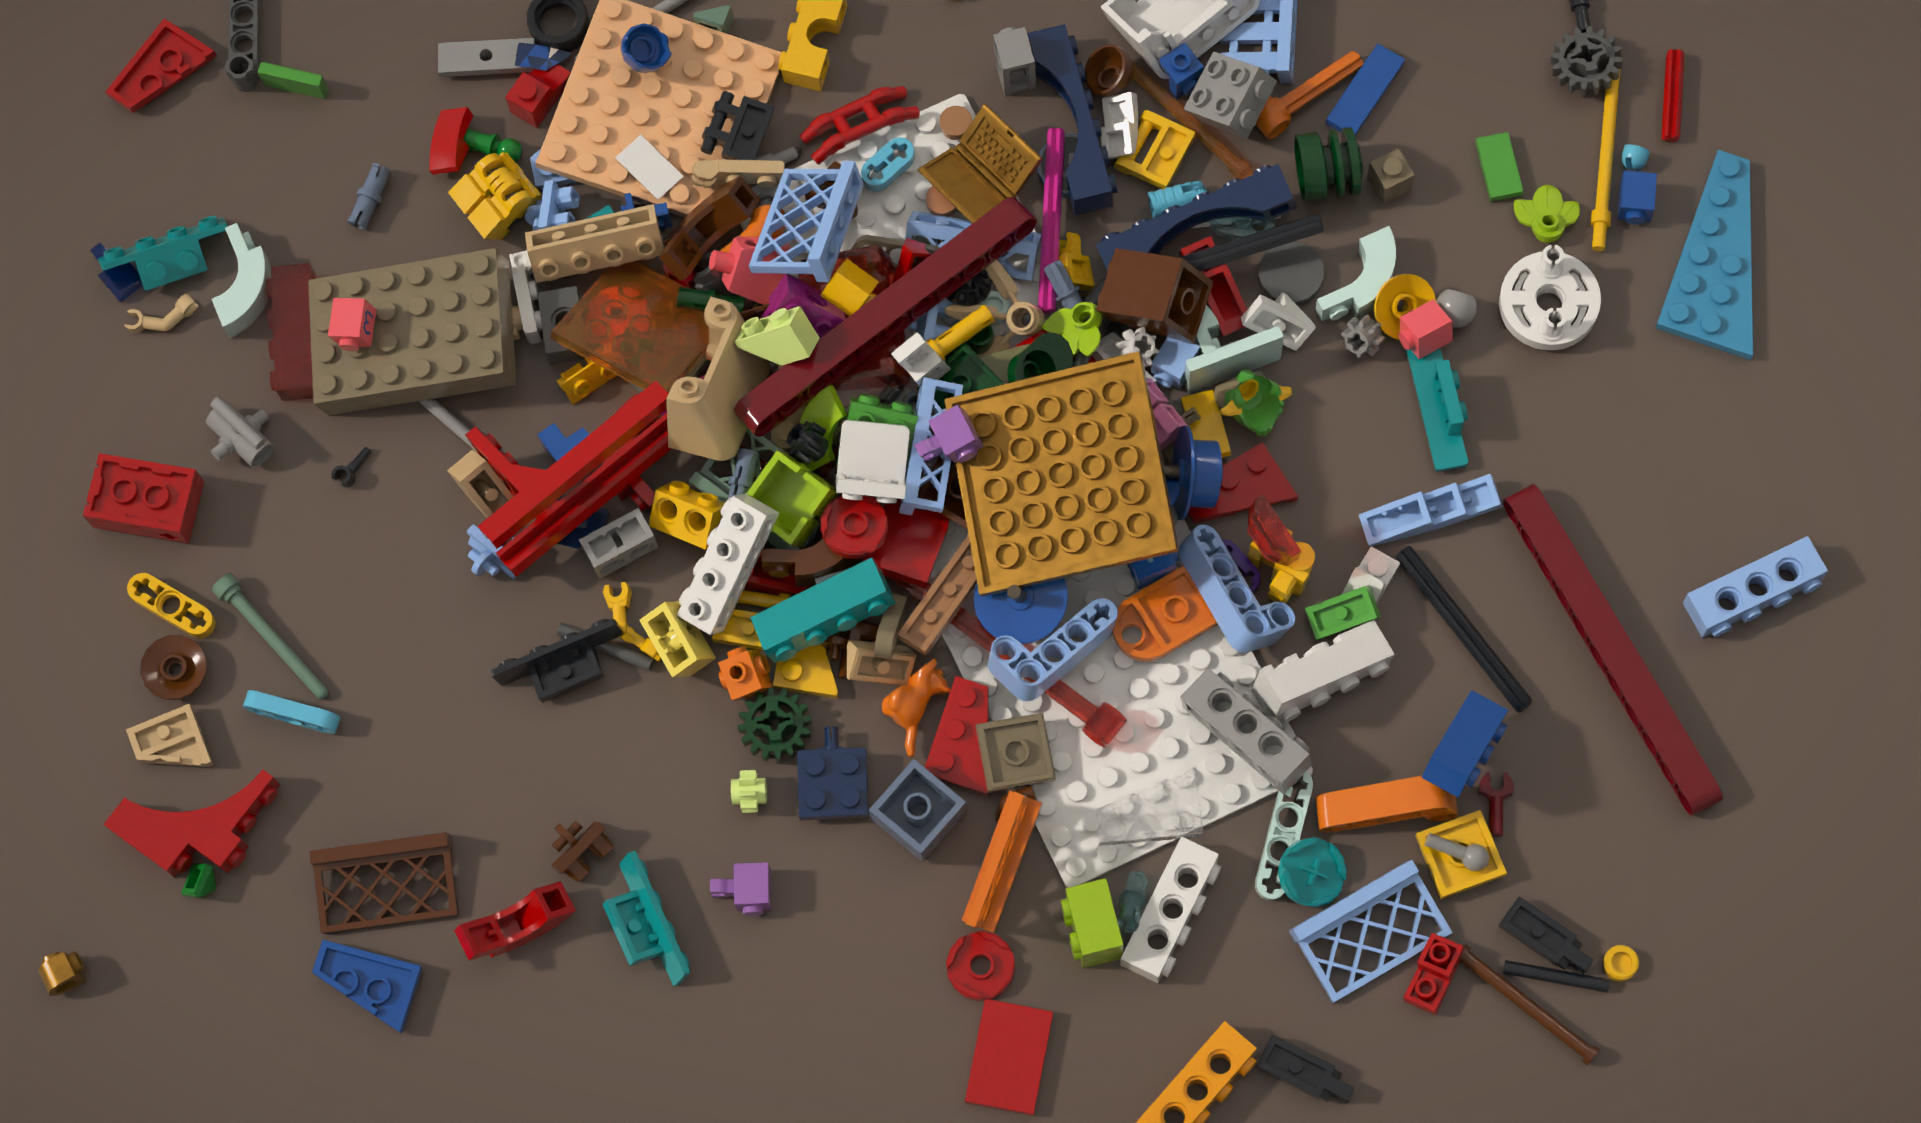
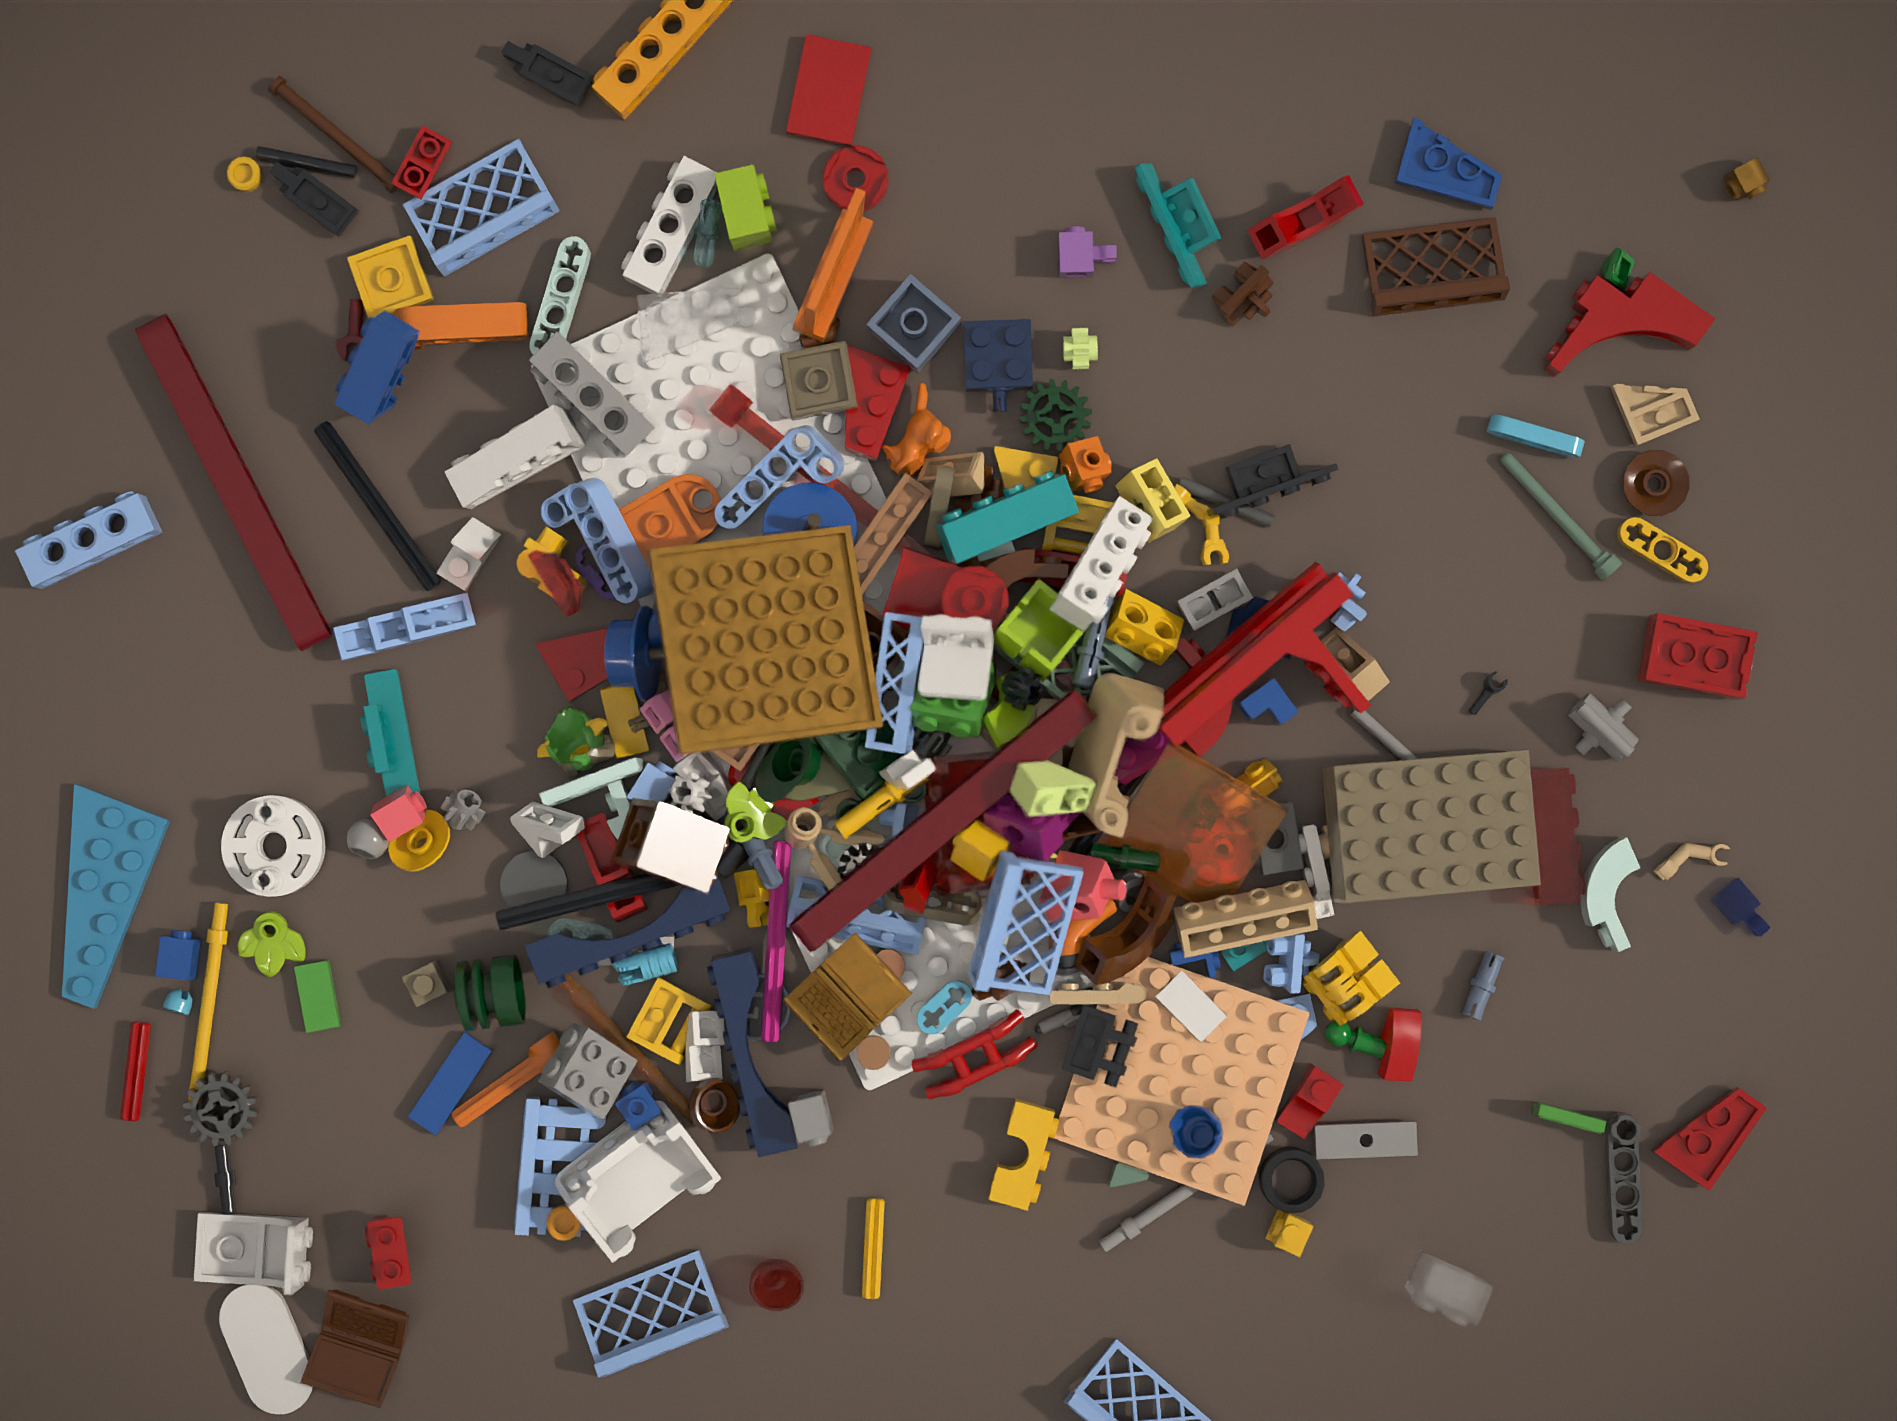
camera: 175 degrees right, 15 degrees up
(167, 257) = (1689, 922): teal bracket -> none
(352, 323) = (1492, 823): coral brick -> none
(539, 56) = (1310, 1137): dark blue sticker -> none
(953, 436) = (872, 680): medium lavender brick -> none
(1312, 872) = (533, 261): teal tile -> none
(1342, 612) = (494, 518): bright green plate -> none
(1378, 260) = (445, 878): light aqua arch -> none
(1474, 857) = (377, 272): light grey bar -> none

